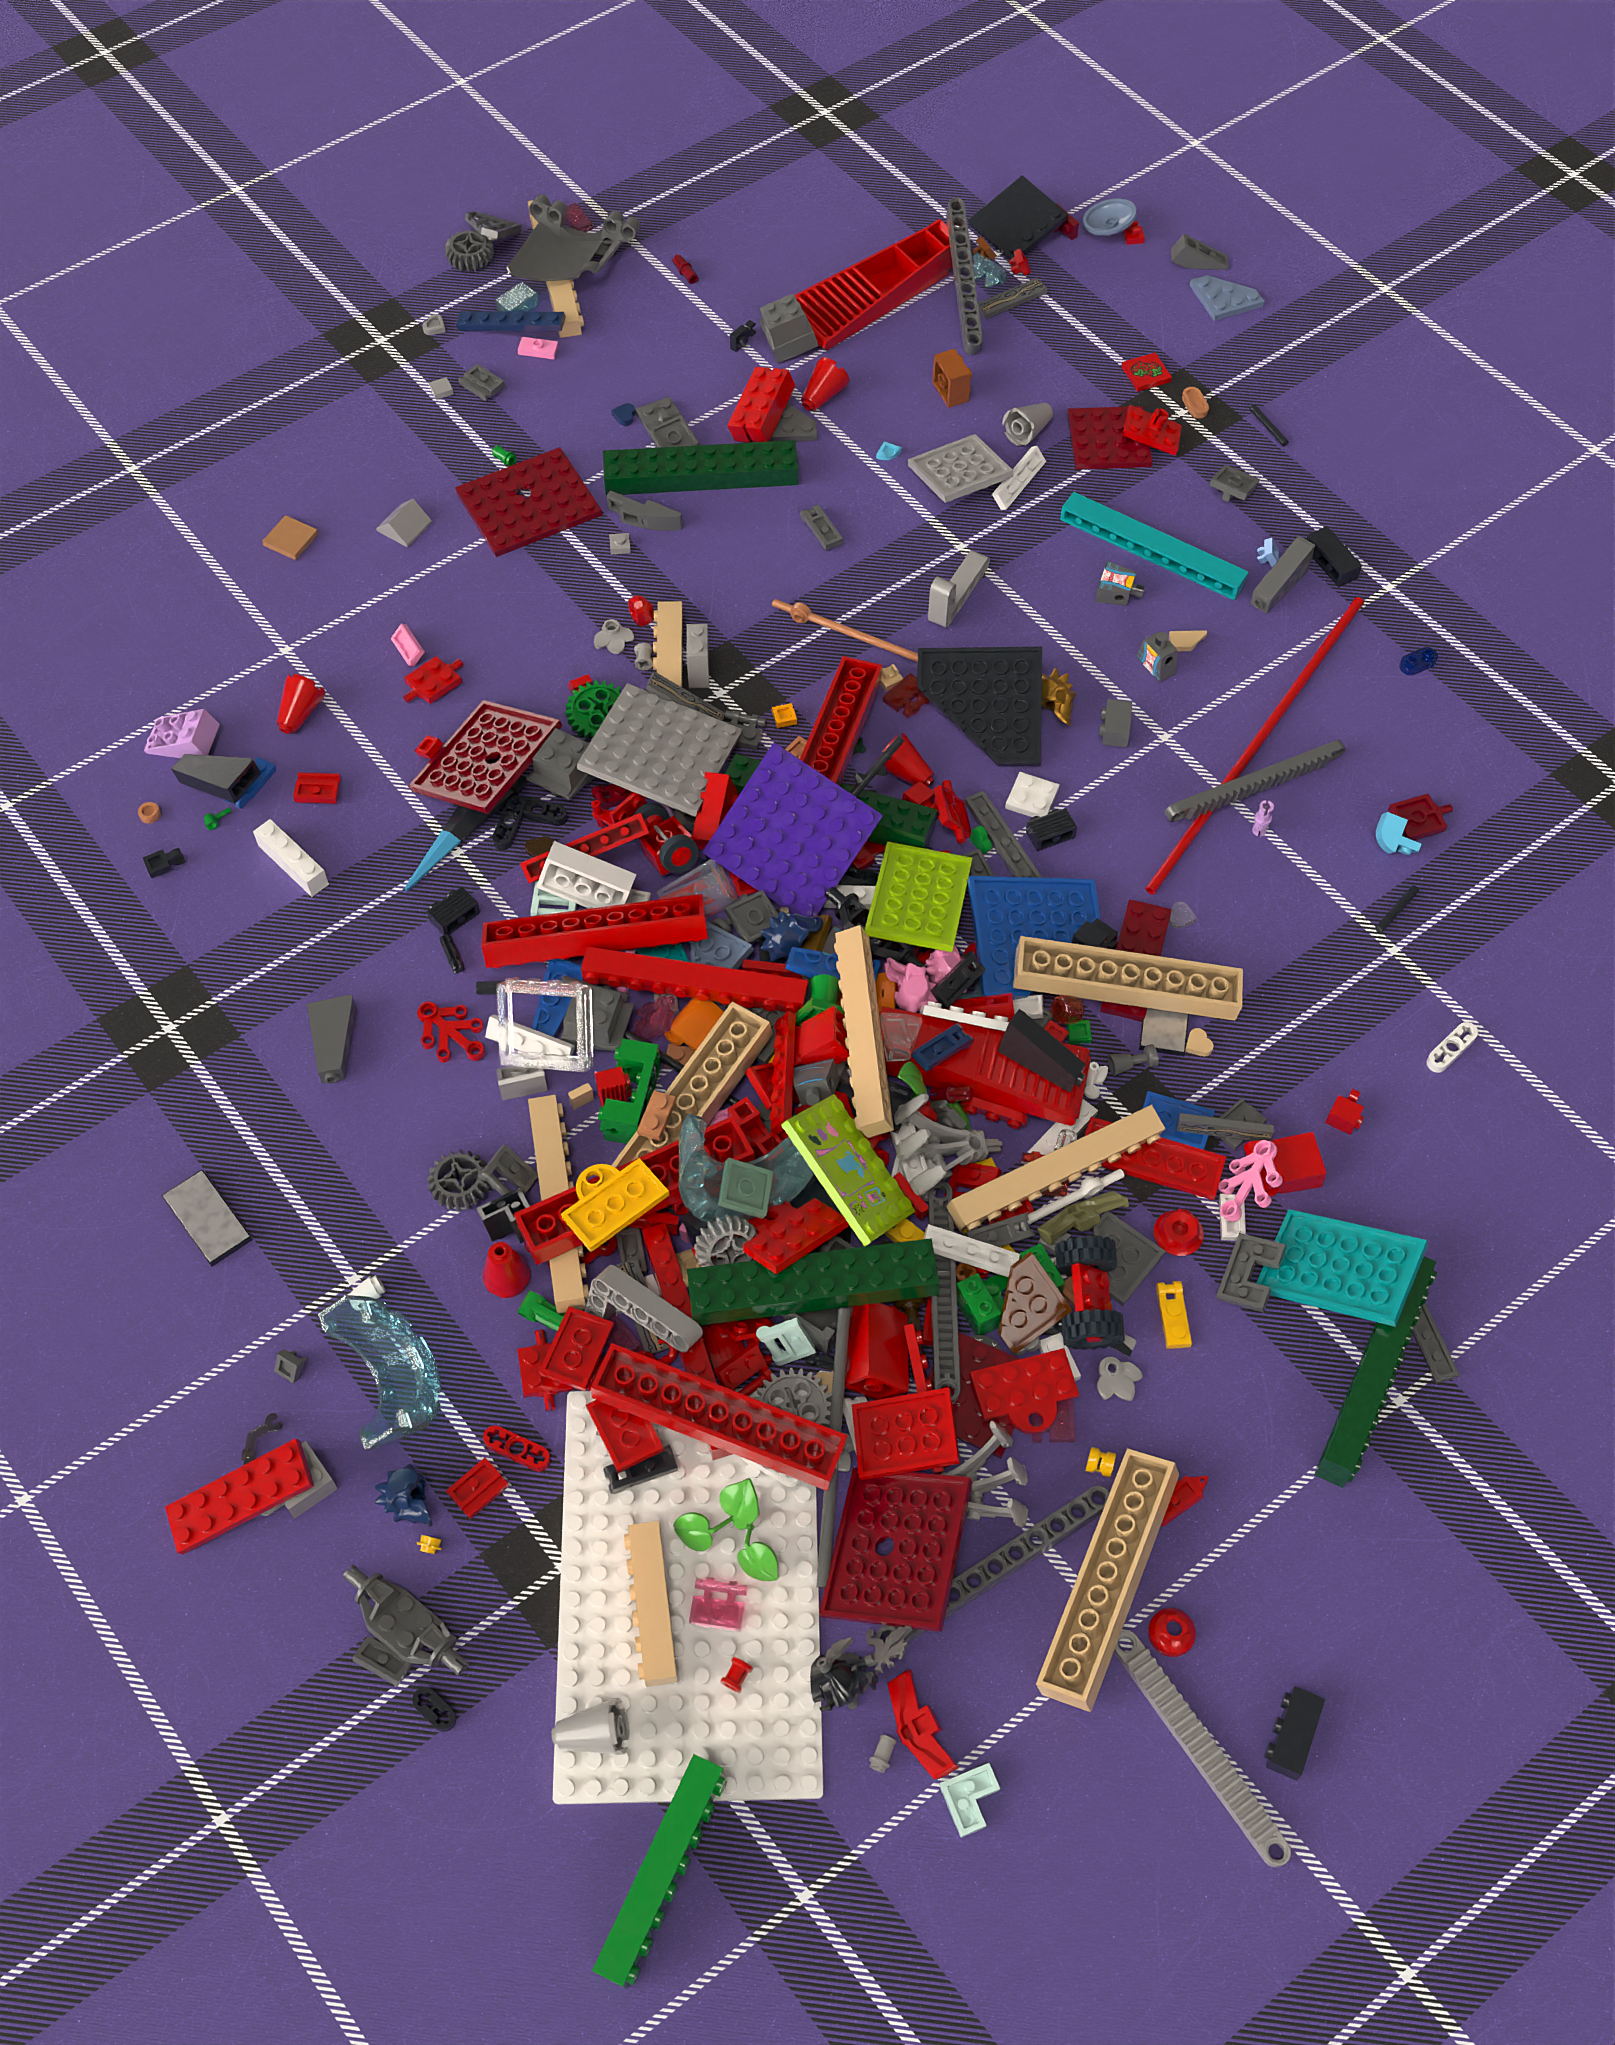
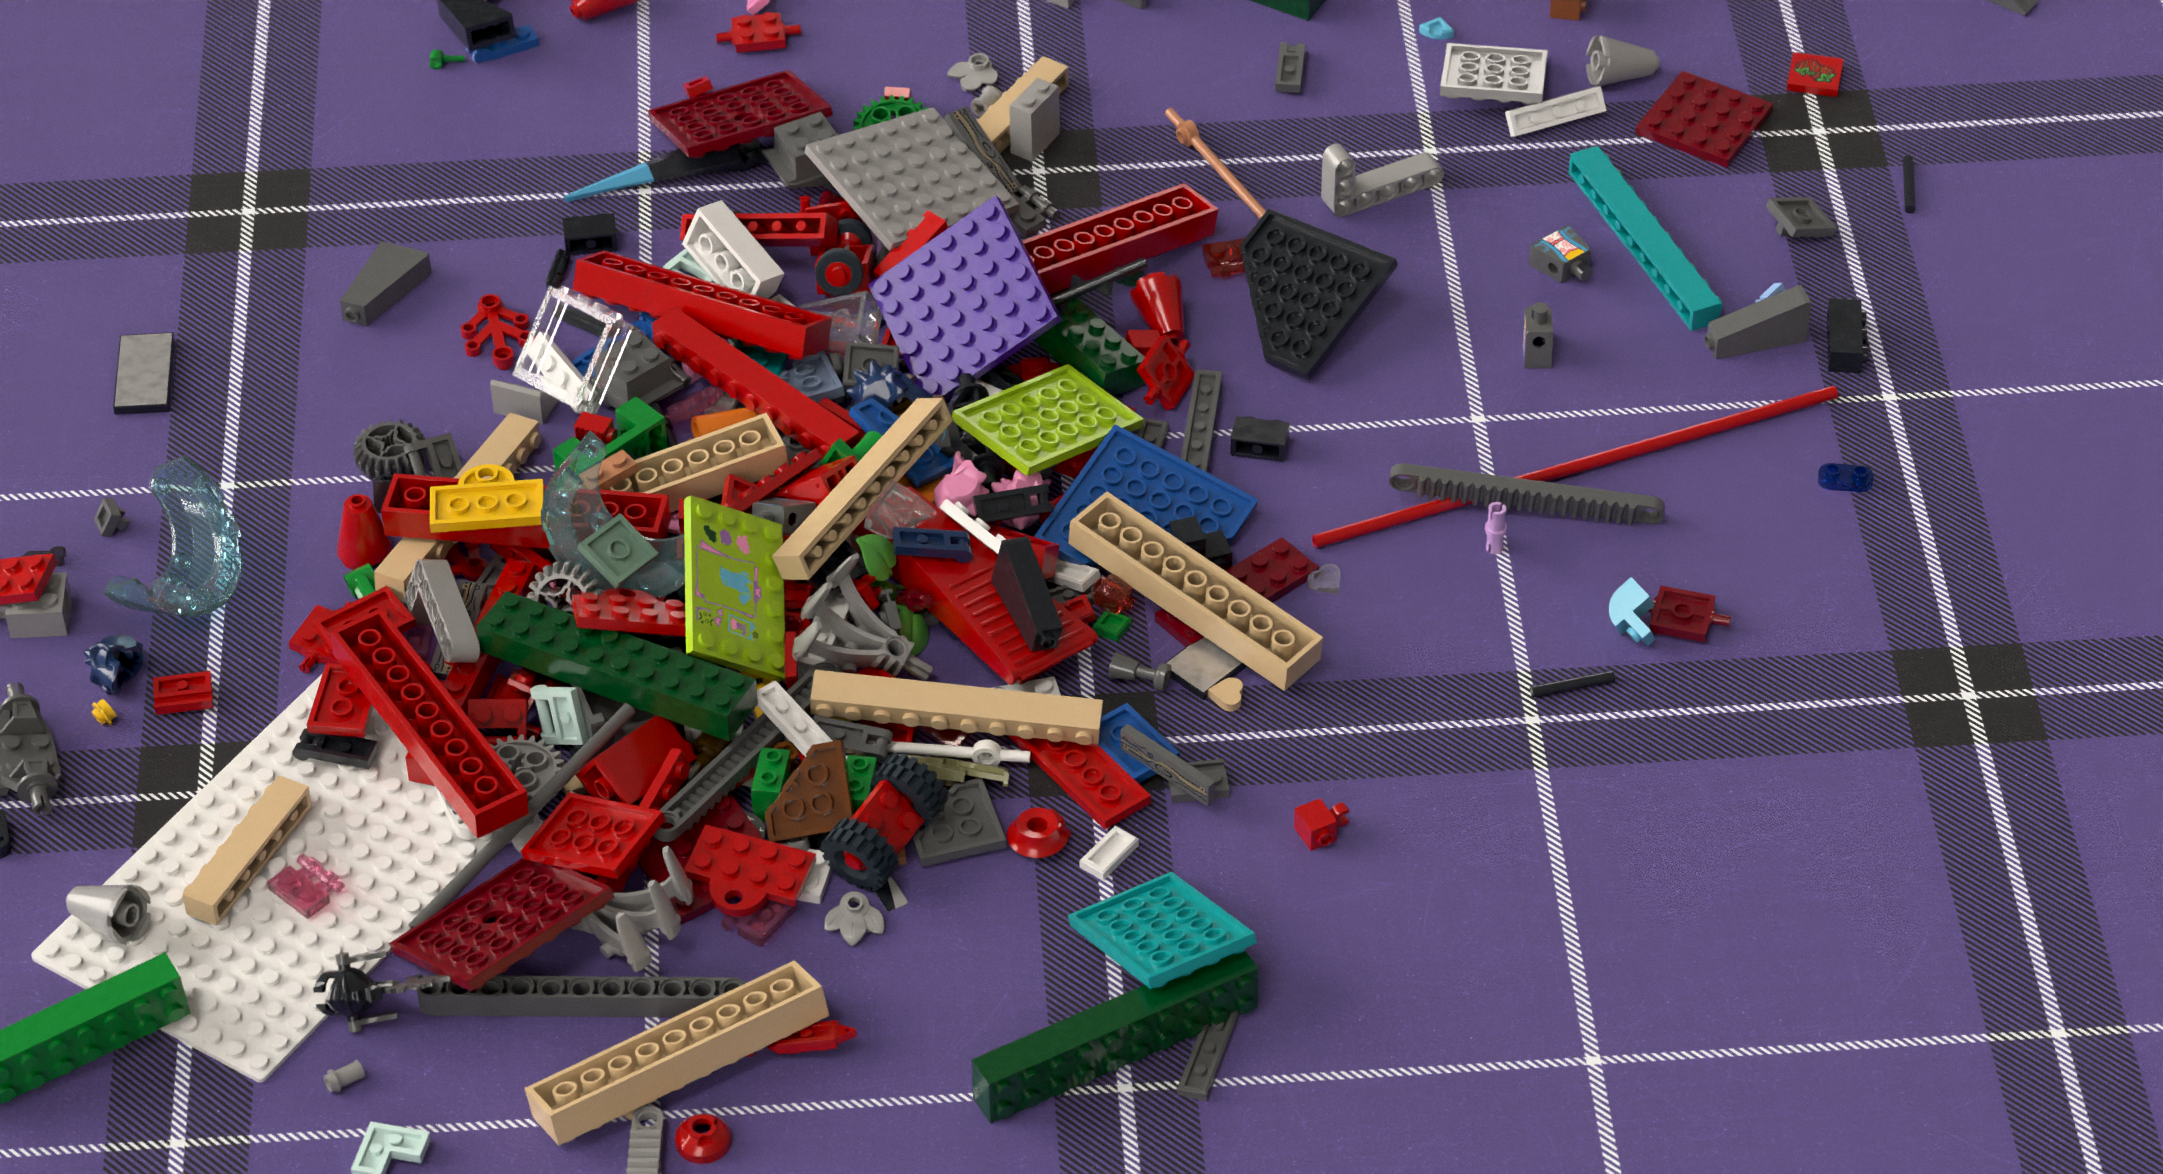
camera: 35 degrees right, 15 degrees down
(149, 812) = (388, 27): nougat tile -> none
(159, 862) = (359, 70): black plate -> none
(291, 857) = (480, 120): white brick -> none
(317, 788) = (559, 74): red plate -> none
(370, 1287) = (236, 495): white cone -> none
(497, 1447) = (246, 693): red beam -> none
(524, 811) = (734, 178): black beam -> none
(581, 1096) = (560, 434): tan tile -> none
(641, 610) = (1021, 57): red rock -> none
(736, 1675) = (259, 940): red bush -> none
(742, 1504) = (369, 864): bright green plant -> none
(784, 715) = (1079, 211): light orange plate -> none
(890, 677) = (1227, 230): tan tile -> none
(918, 1726) = (394, 1072): red plate -> none
(980, 839) = (1176, 410): green tile -> none
(995, 1112) = (950, 643): red plate -> none
(1032, 795) = (1274, 401): white plate -> none
(1057, 695) = (1384, 323): pearl gold head -> none
(1095, 1075) = (1077, 665): white plant -> none
(1106, 1463) = (762, 963): yellow wheel -> none
(1116, 723) = (1427, 376): dark grey brick -> none
(1152, 429) = (1755, 127): red plate -> none
(1173, 1315) = (964, 899): yellow plate -> none
(1186, 639) = (1592, 341): tan tile -> none
(1195, 402) = (1843, 127): nougat tile -> none
(1224, 297) = (1990, 40): sand blue plate -> none
(1236, 1283) = (1051, 905): dark grey plate -> none
(1263, 1156) = (1156, 811): bright pink plant -> none
(1296, 1161) = (1205, 833): red piece -> none
(1454, 1038) = (1509, 820): white beam -> none

